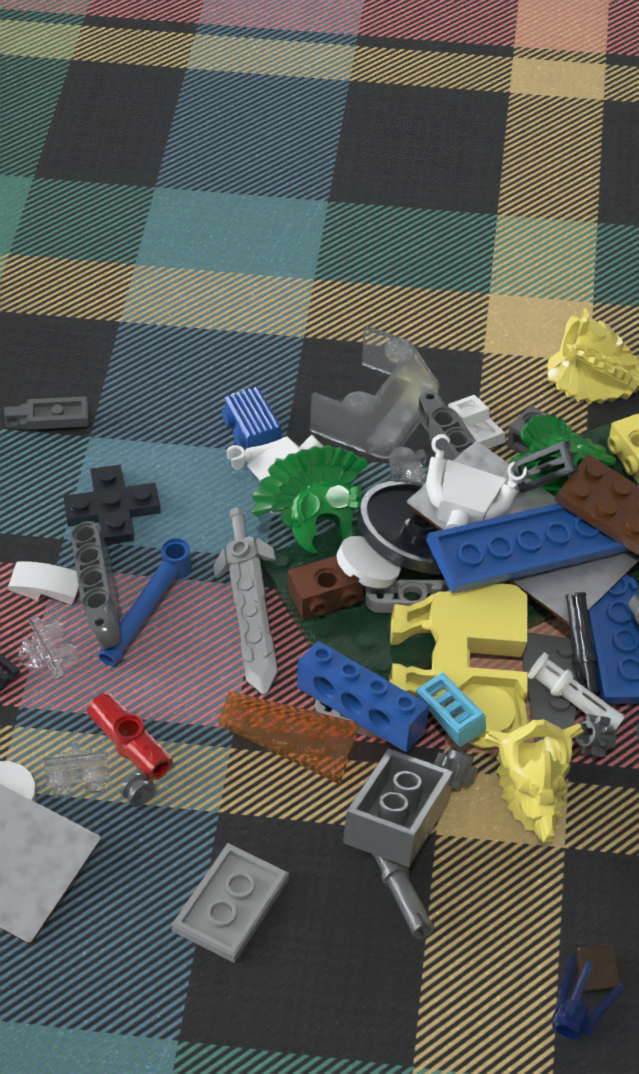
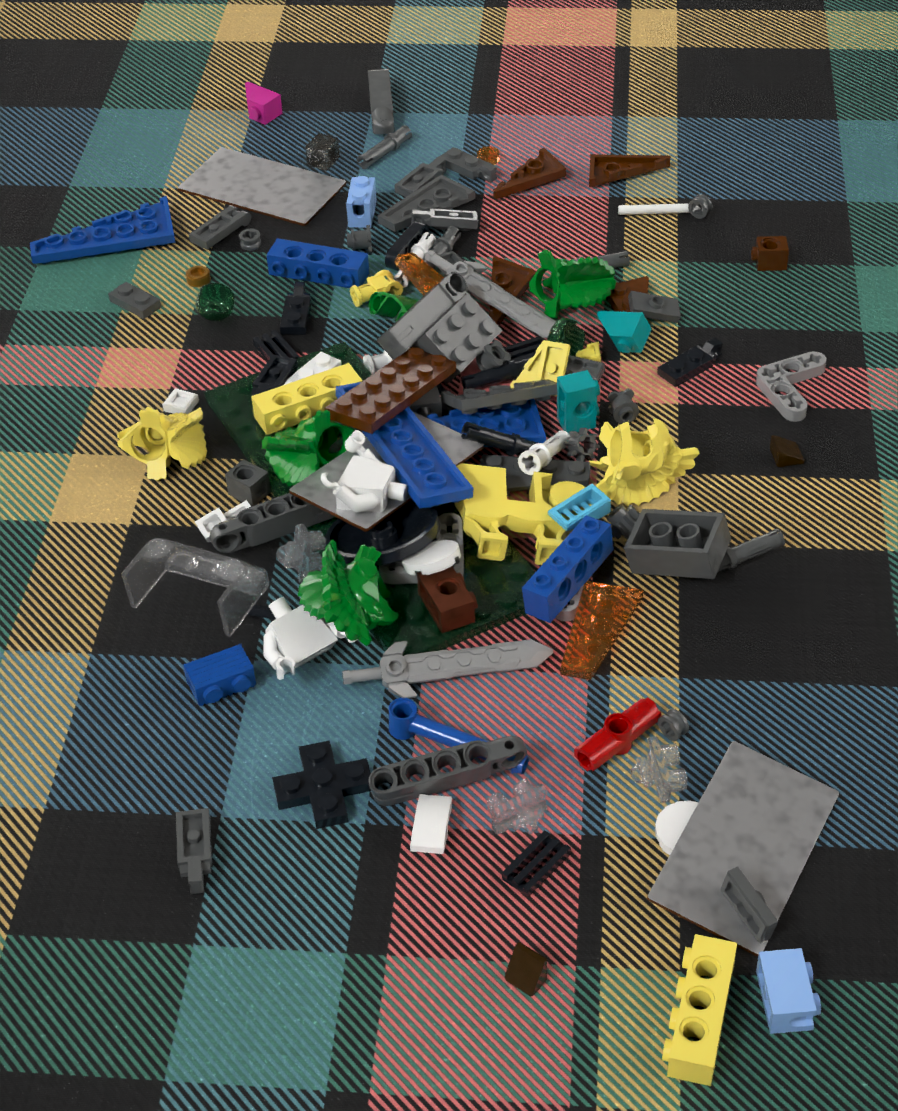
camera: 90 degrees left, 5 degrees down
(230, 902) = (770, 660): light grey tile -> none
(567, 459) = (333, 433): black tile -> none
(571, 1017) = (832, 459): clear blue plant -> none

